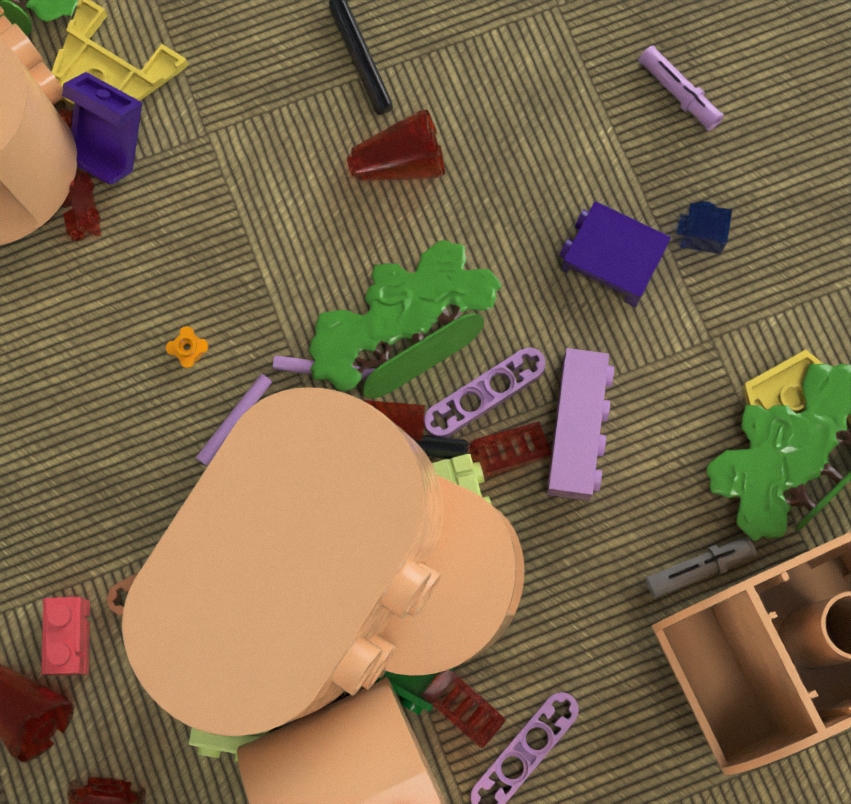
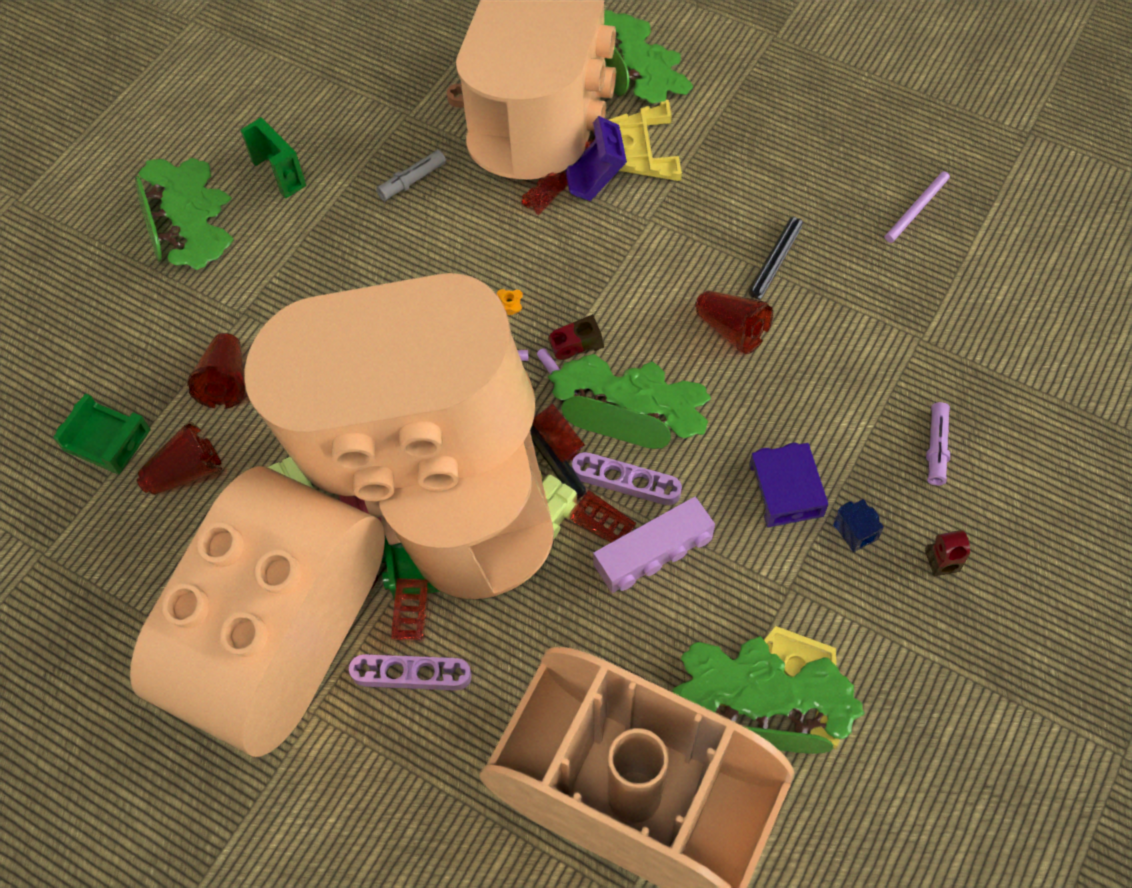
camera: 50 degrees right, 15 degrees down
(291, 317) = (576, 338): none -> leg
(796, 176) = (948, 552): none -> dark red leg

